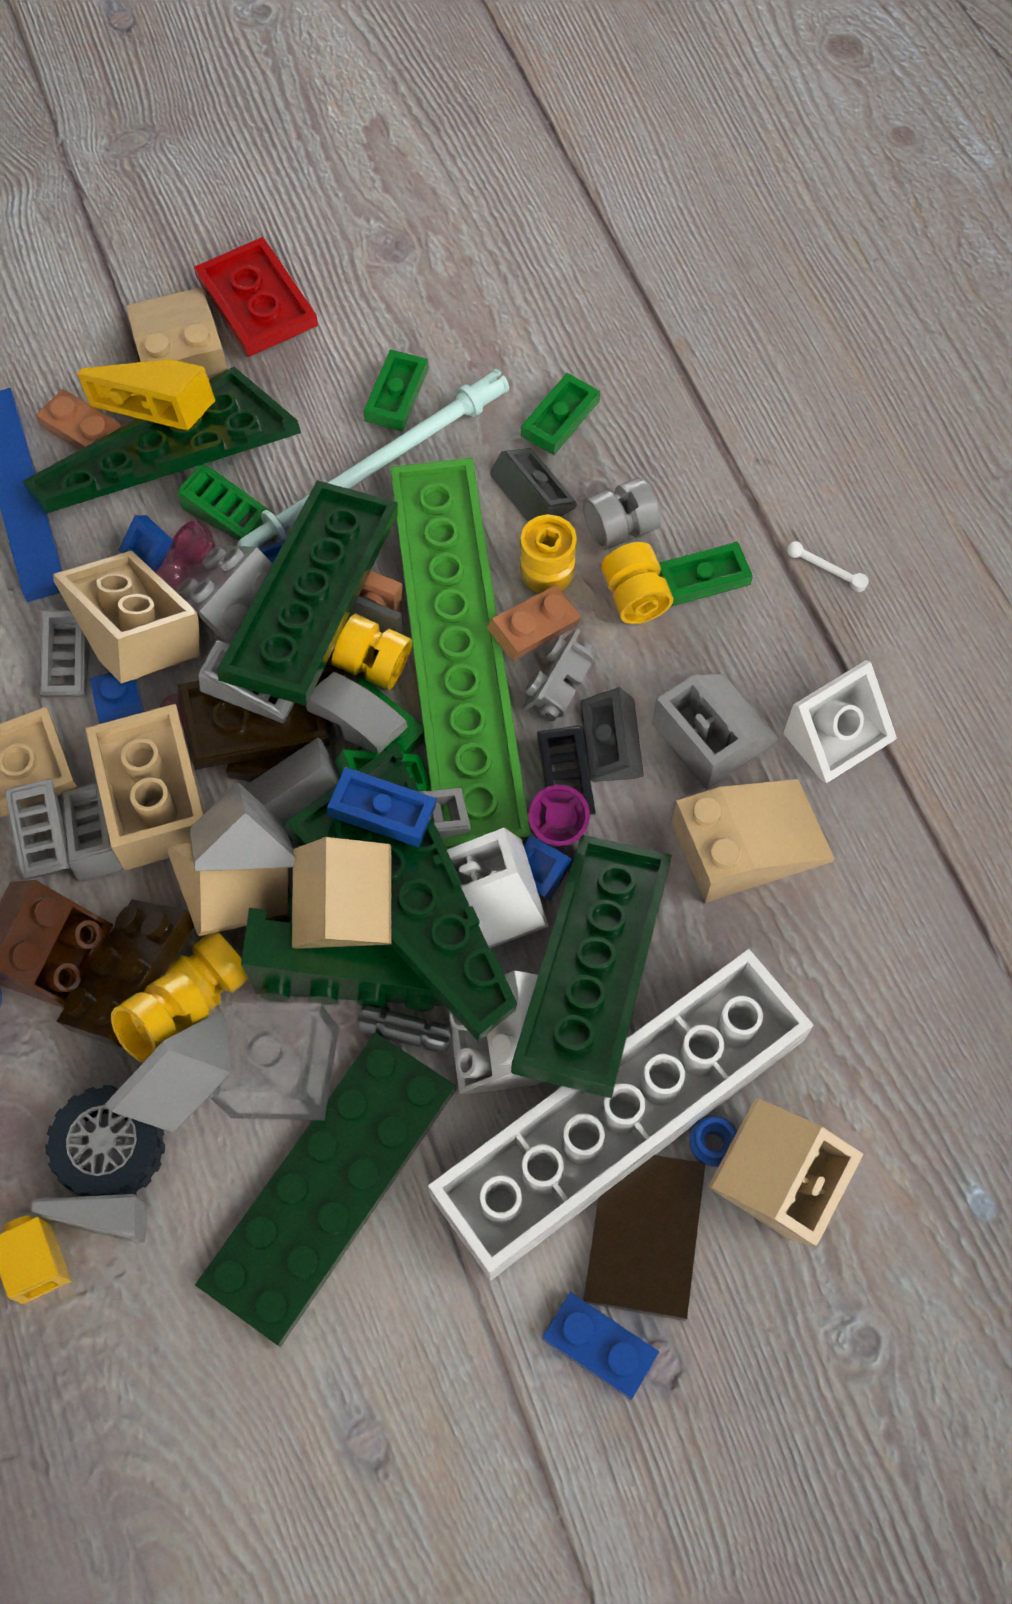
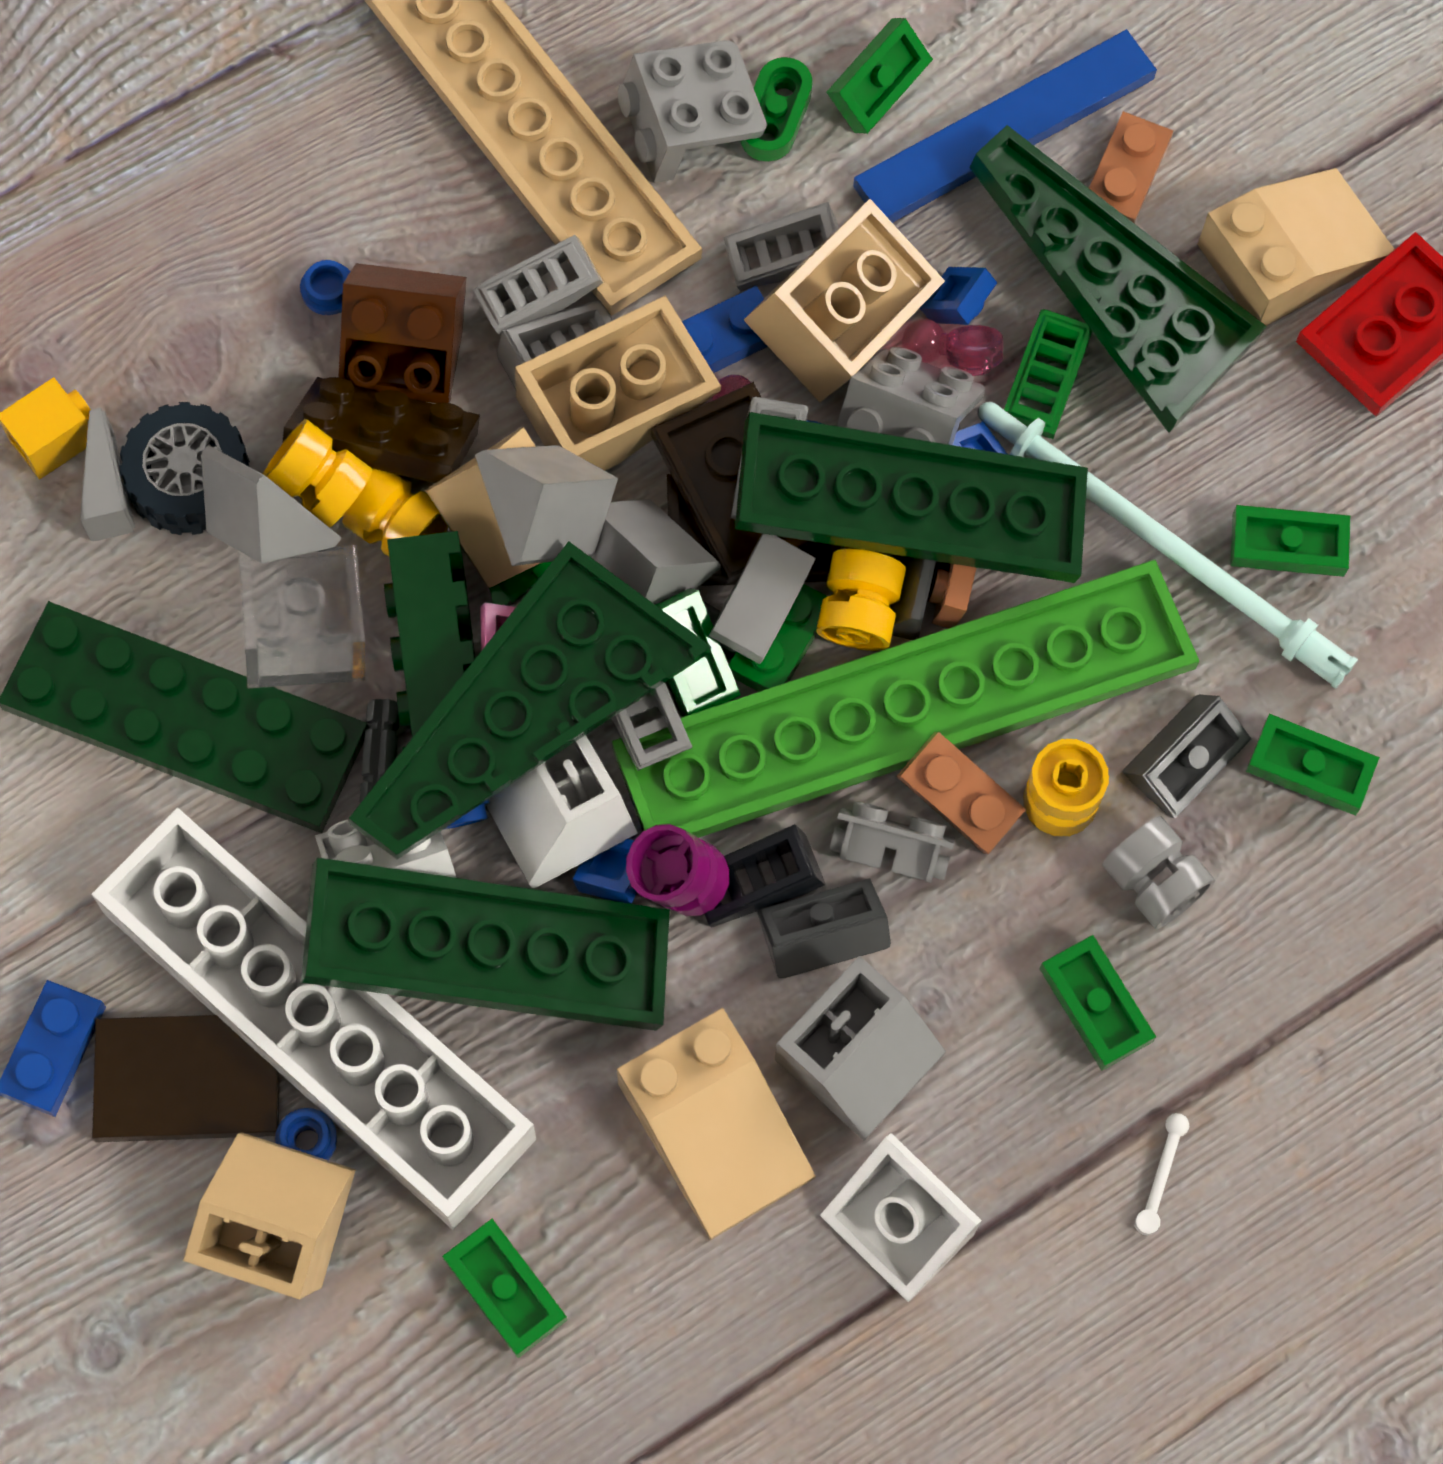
camera: 75 degrees right, 5 degrees up
(153, 391) = (1180, 238): yellow slope -> none
(341, 894) = (483, 626): tan slope -> none
(381, 807) = (606, 643): blue plate -> none
(635, 583) = (1048, 914): yellow wheel -> none
(857, 1007) = (505, 1288): none -> green plate

